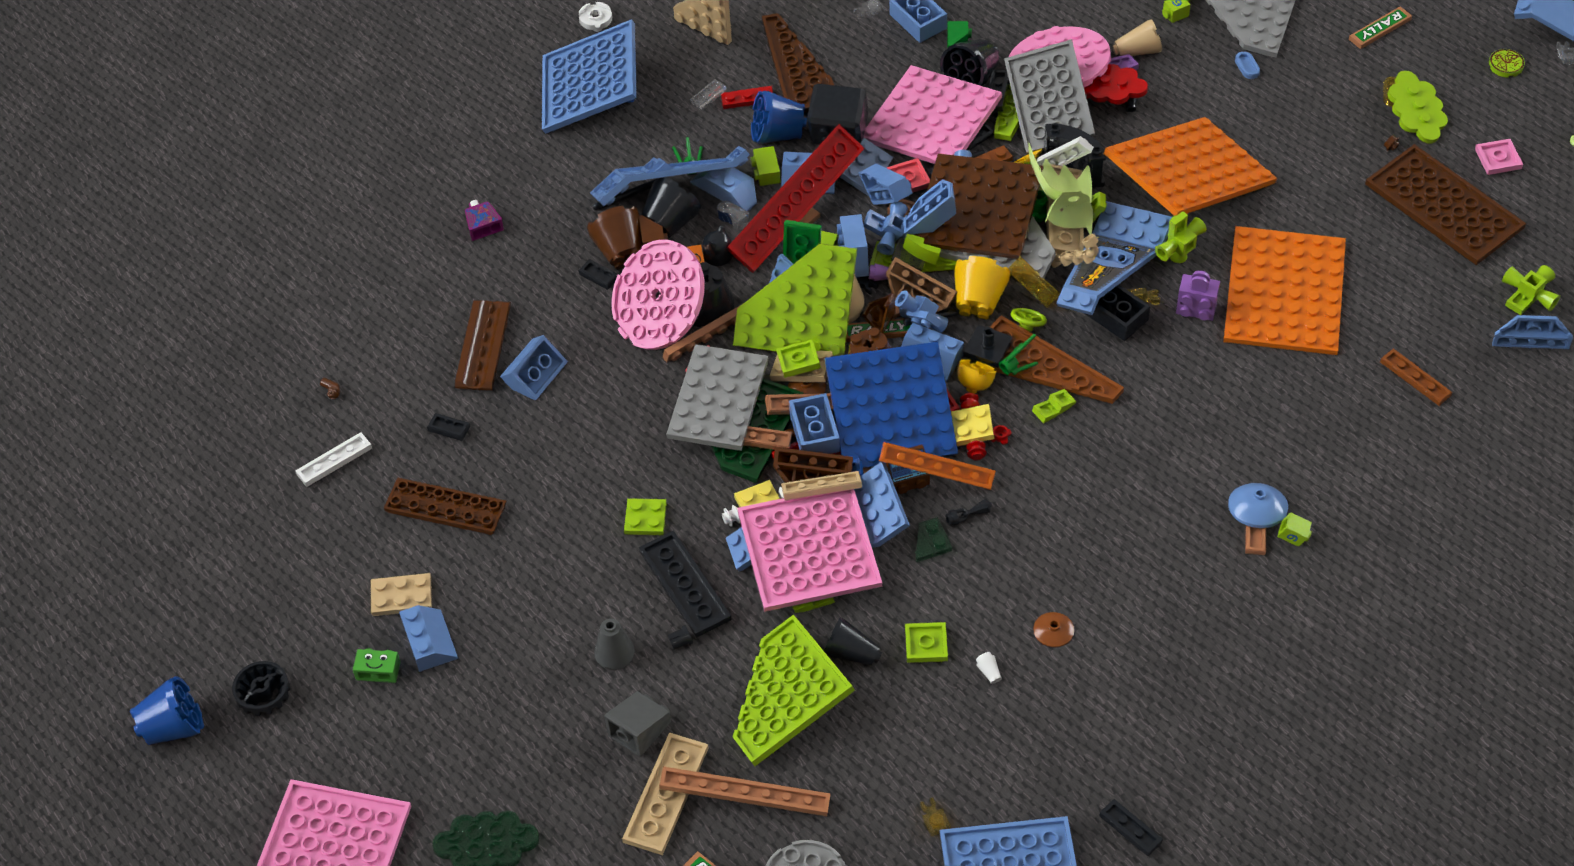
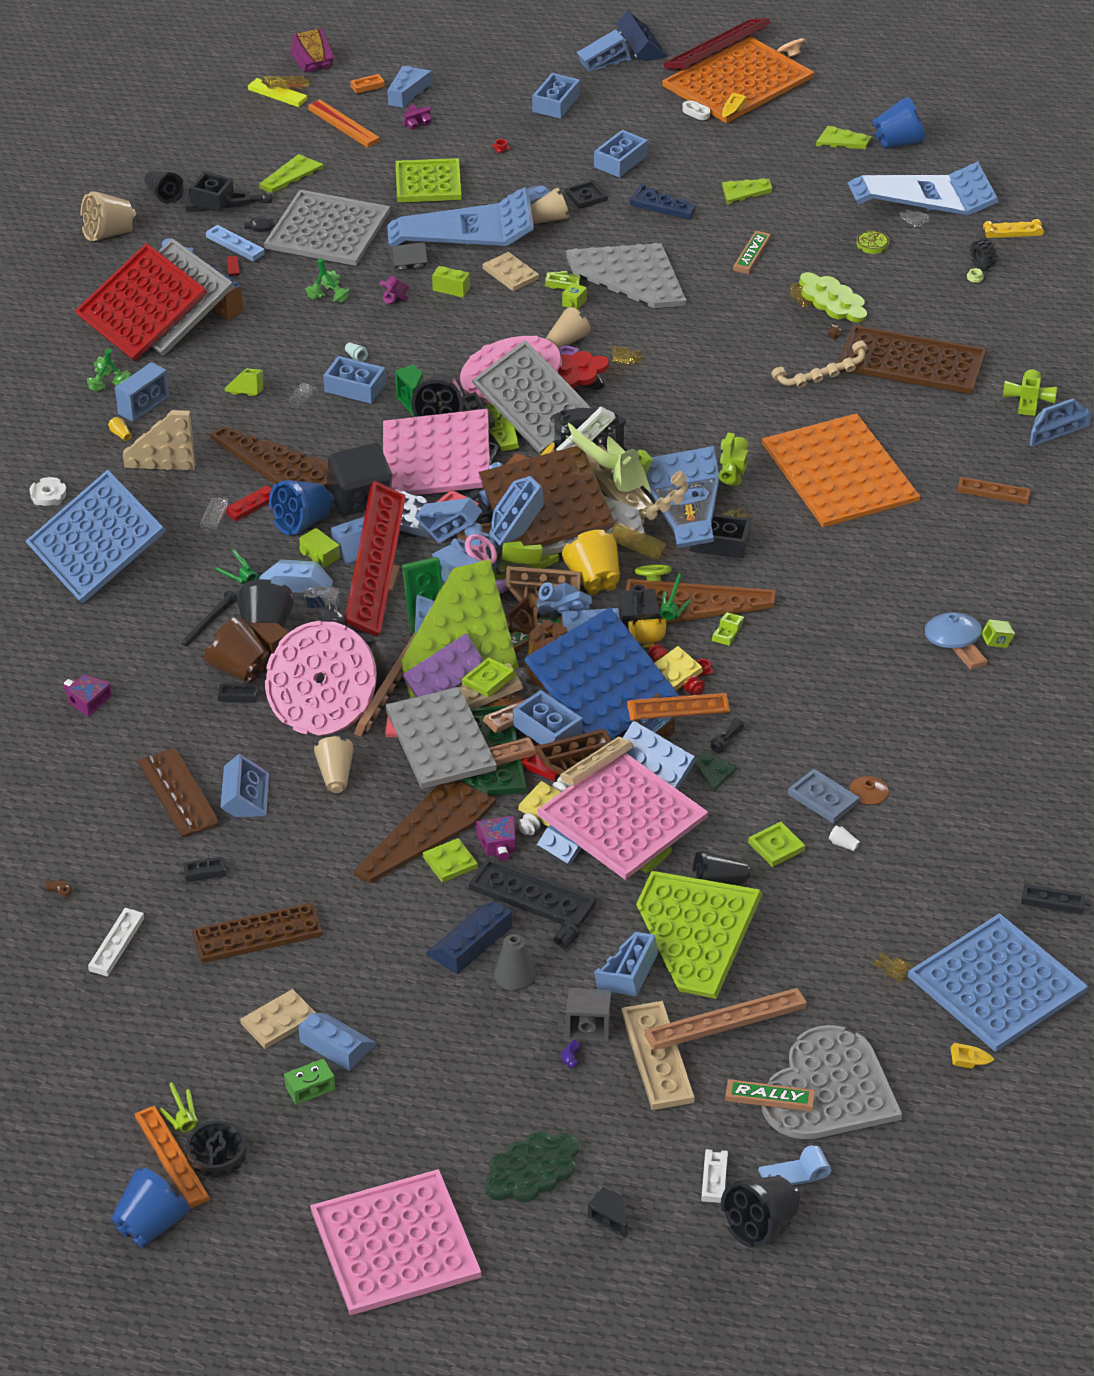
camera: 35 degrees left, 10 degrees down
(232, 663) = (172, 1156): none -> orange tile
(261, 647) = (185, 1119): none -> lime plant
(596, 751) = (569, 1053): none -> dark purple arm
(604, 599) = (472, 936): none -> dark blue slope
(618, 379) = (334, 760): none -> tan cone
(657, 168) = (203, 609): medium blue wing -> none
(671, 471) = (437, 818): none -> reddish brown wing
(698, 515) = (497, 836): none -> magenta torso
(707, 696) = (630, 966): none -> medium blue wedge
(769, 332) = (443, 668): none -> medium lavender plate
(873, 236) = (479, 552): none -> bright pink piece
(1005, 615) = (823, 796): none -> sand blue plate
(1174, 85) = (623, 355): none -> clear yellow plate
(1190, 166) = (694, 404): orange plate -> none
(1198, 296) = (781, 497): medium lavender brick -> none
(1247, 65) = (668, 318): medium blue tile -> none
(1355, 182) = (817, 374): none -> tan bar
(1498, 156) = (924, 310): bright pink plate -> none

